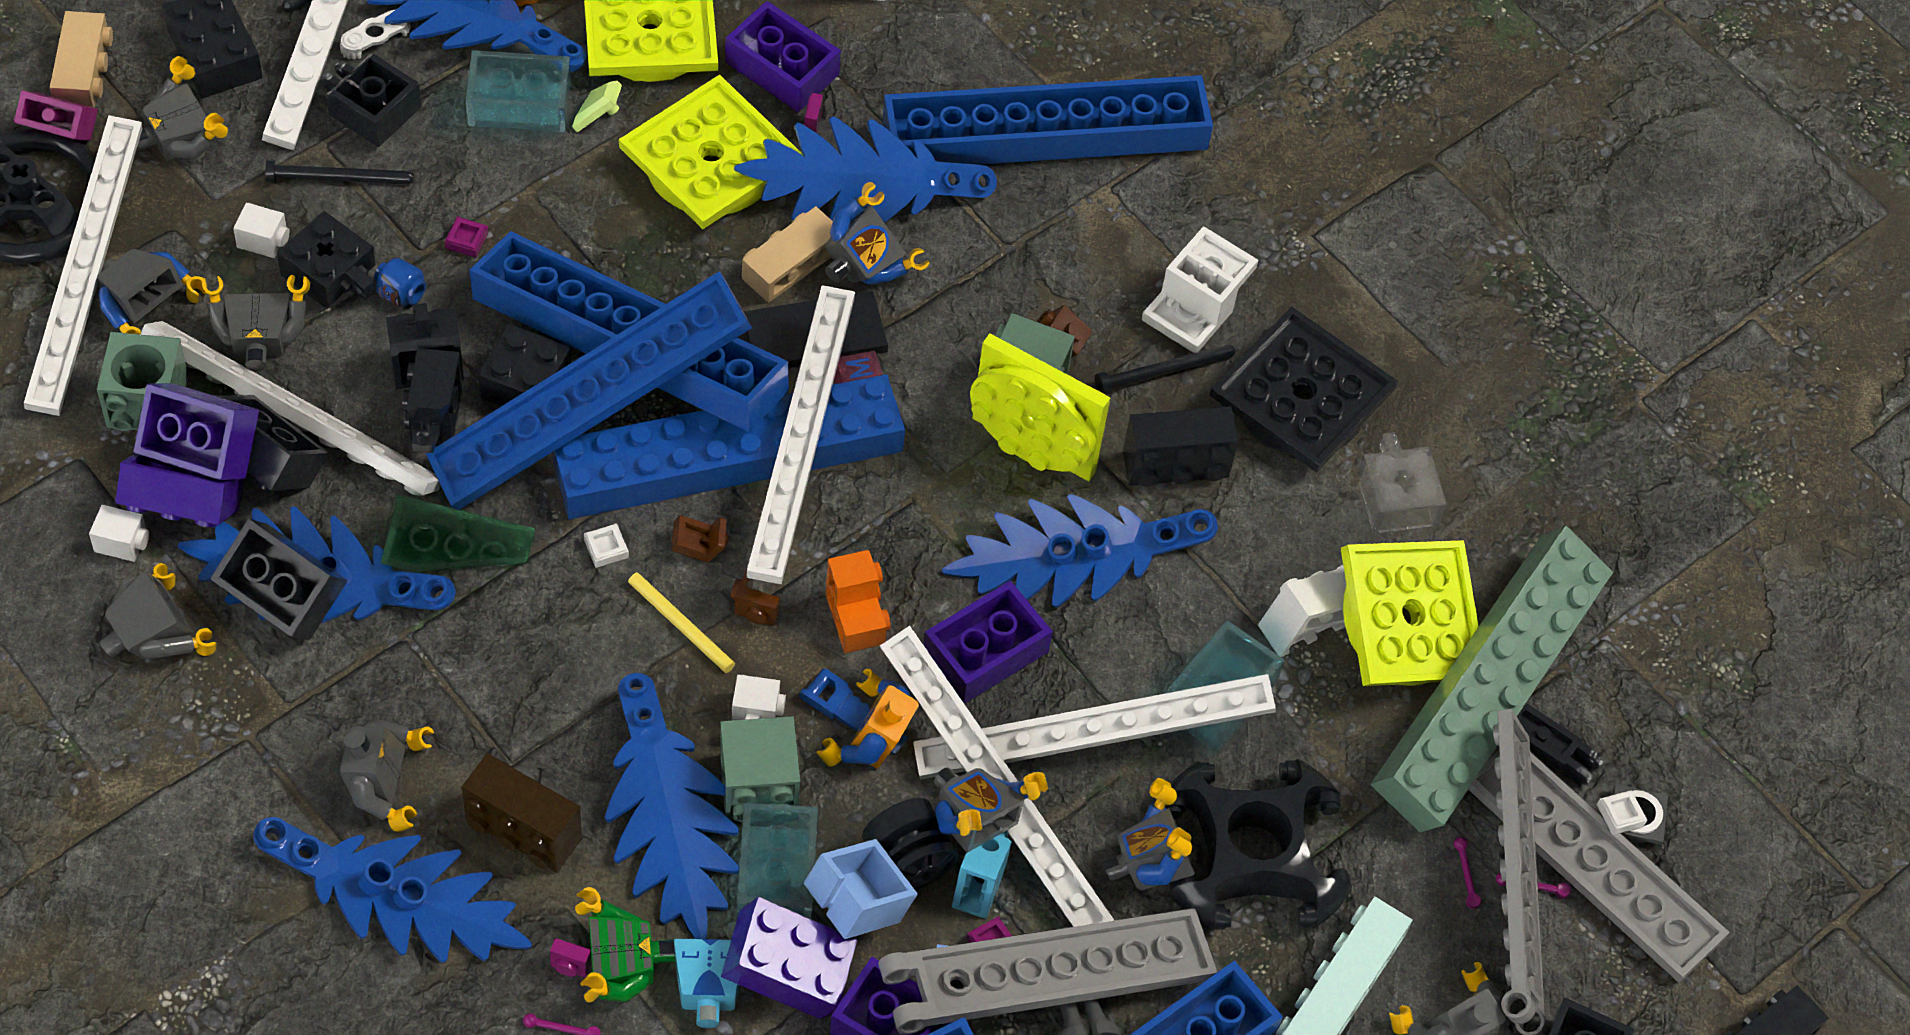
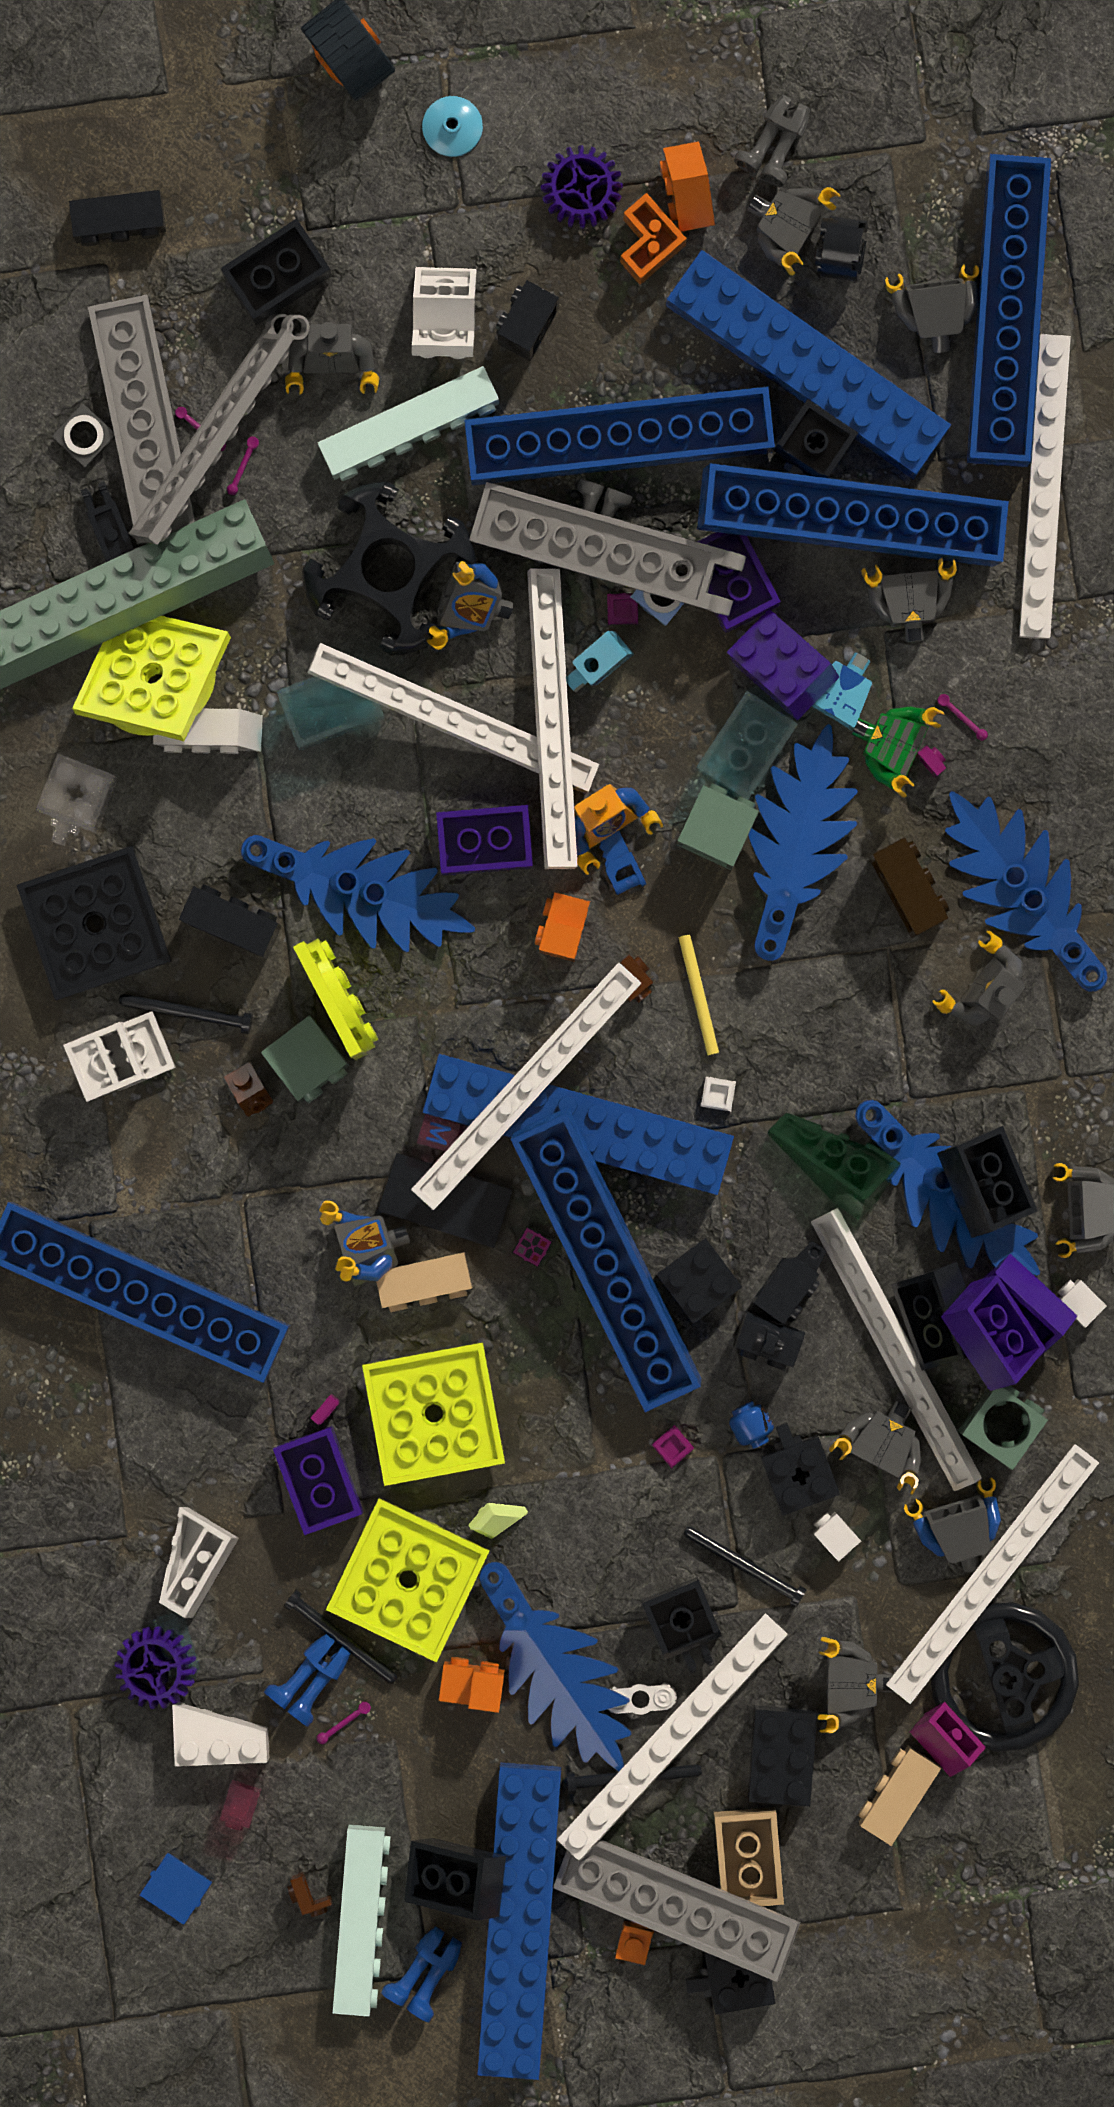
camera: 135 degrees left, 30 degrees up
(518, 91) = (558, 1562): clear light blue brick -> none
(588, 391) = (672, 1206): blue plate -> none
(699, 538) = (646, 1055): reddish brown bracket -> none
(757, 698) = (684, 889): white brick -> none
(860, 888) = (706, 680): light blue piece -> none
(891, 168) = (306, 1305): blue plant -> none
(913, 841) = (644, 703): black wheel -> none
(980, 805) = (583, 695): torso -> none
(1621, 812) = (101, 438): white tile -> none

